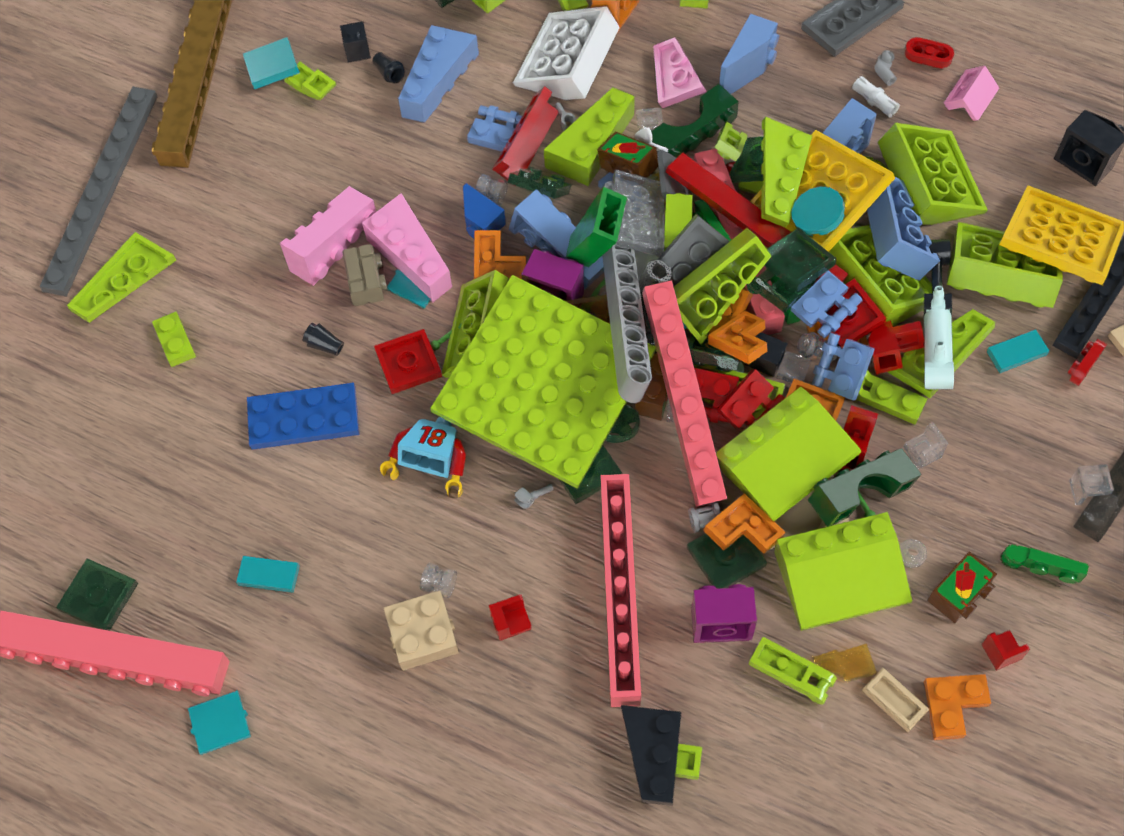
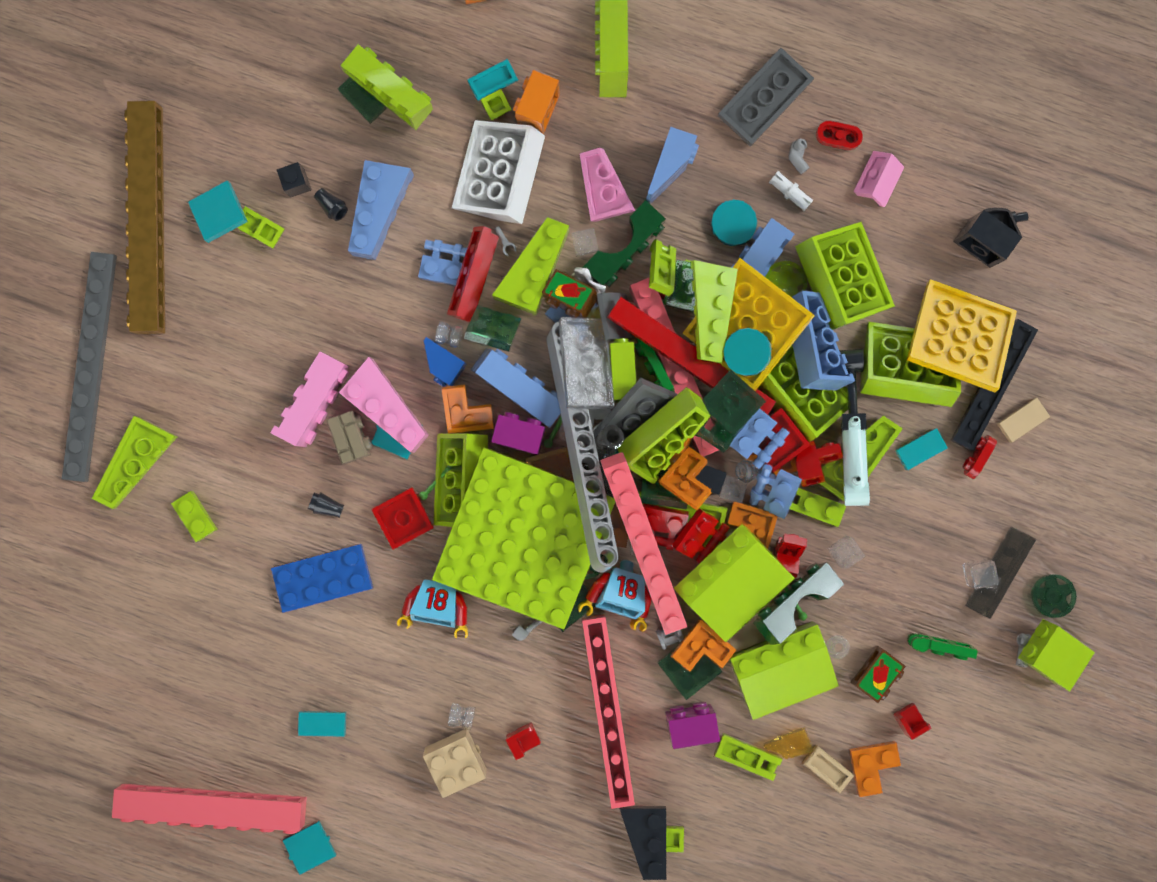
camera: 10 degrees left, 25 degrees up
(97, 595) = (188, 760): clear green plate -> none
(597, 228) = (554, 395): green slope -> none
(652, 458) = (622, 594): none -> torso
(811, 115) = (734, 222): none -> teal tile

